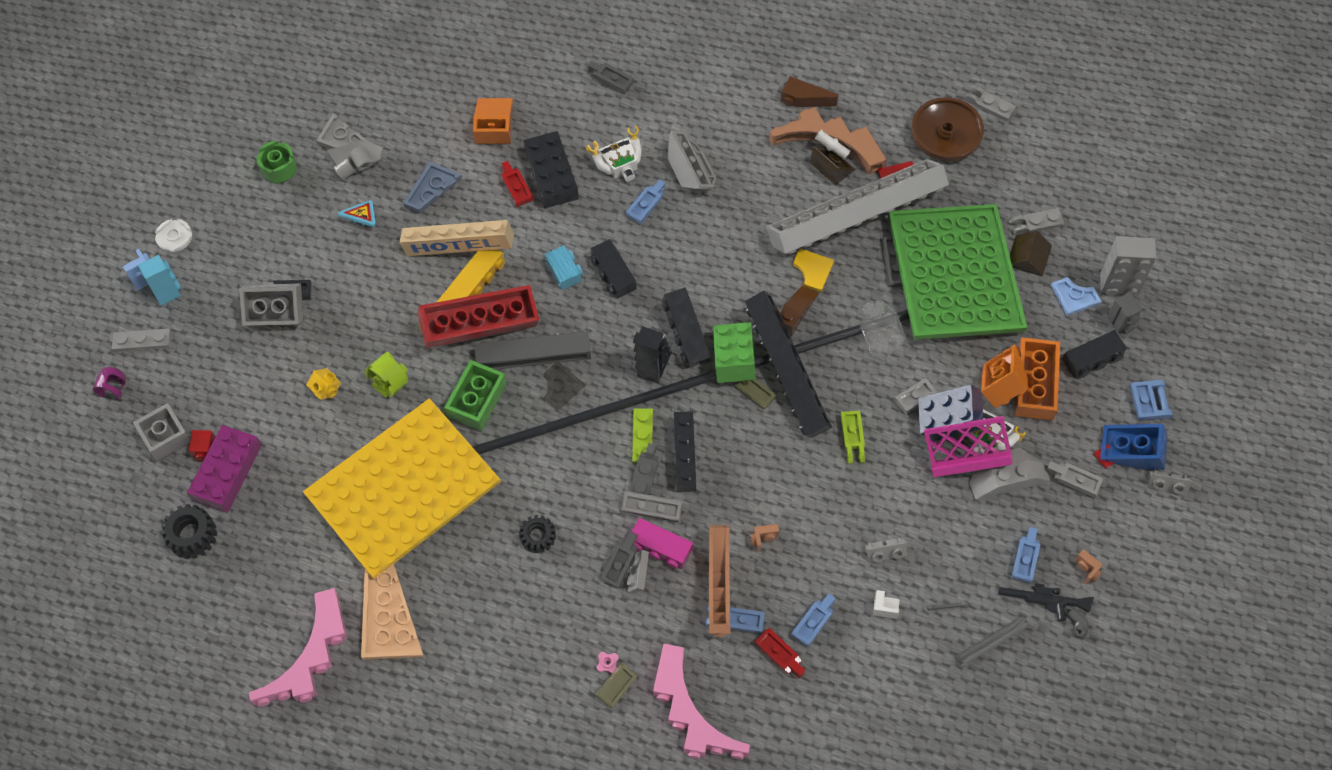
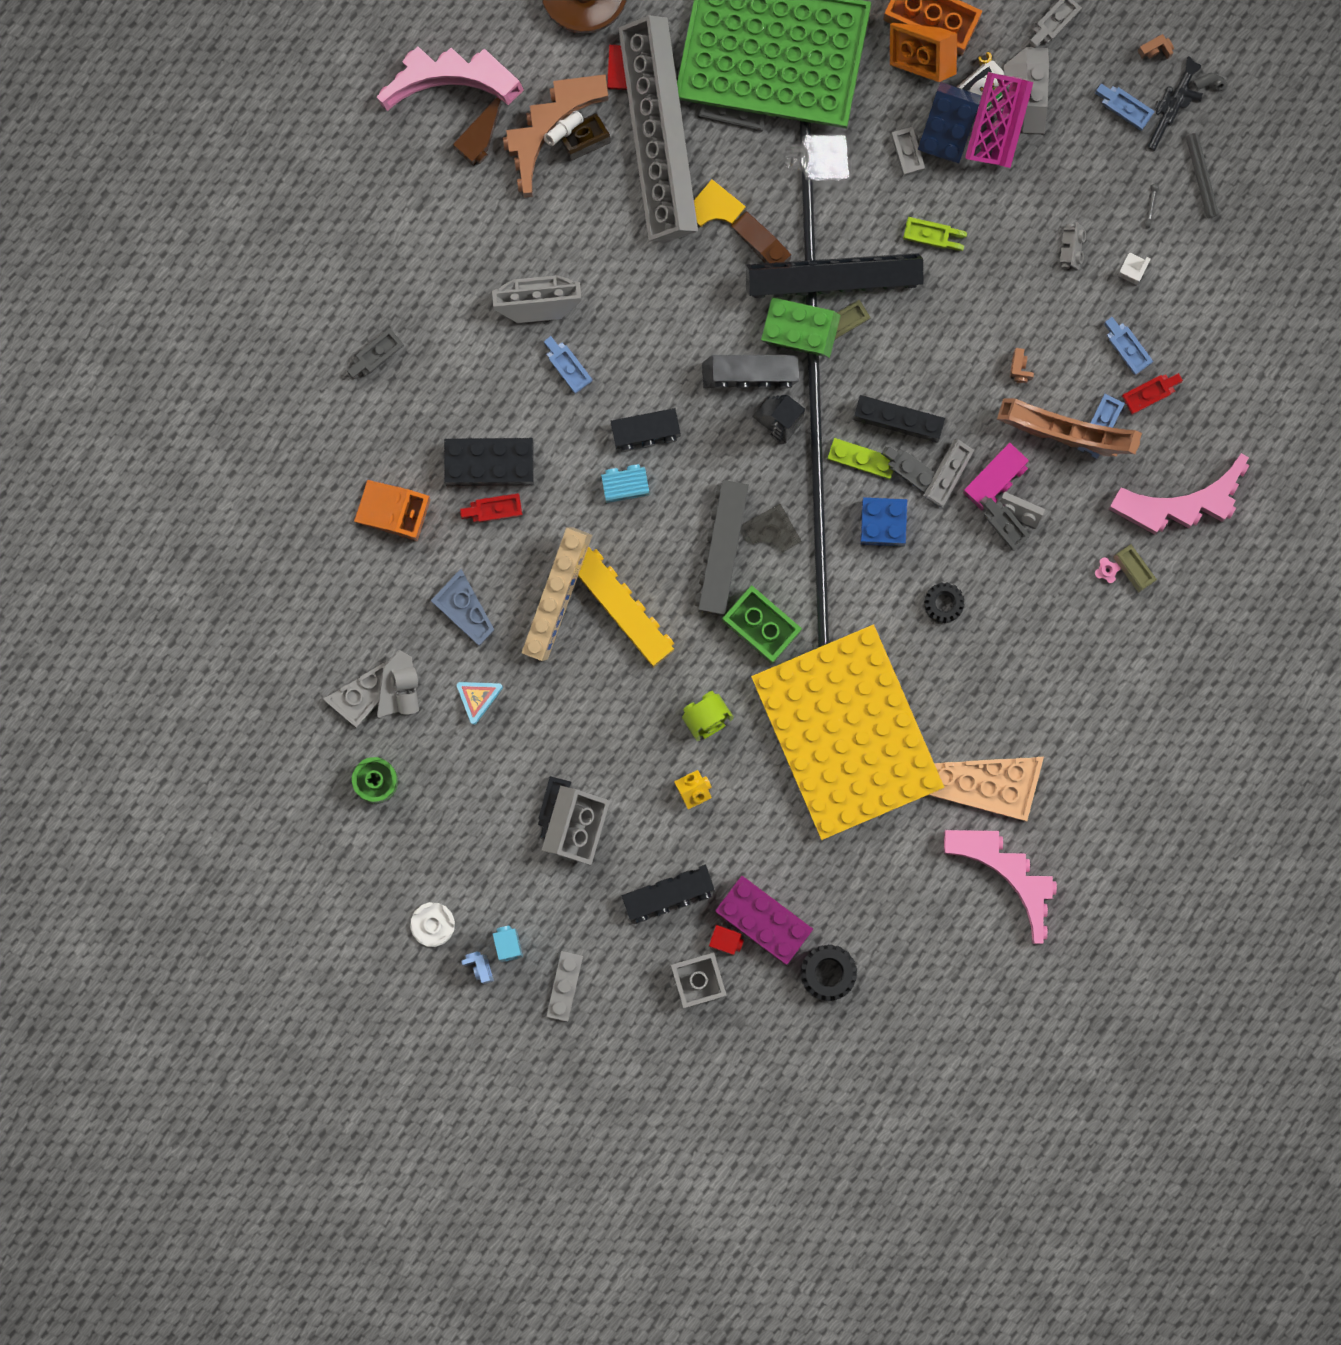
camera: 75 degrees left, 20 degrees up
(106, 375) = (610, 1034): magenta helmet -> none
(233, 391) = (668, 893): none -> black wedge
(478, 316) = (670, 595): red brick -> none
(592, 464) = (883, 522): none -> blue brick
(618, 158) = (497, 377): white torso -> none
(847, 59) = (450, 69): none -> bright pink arch

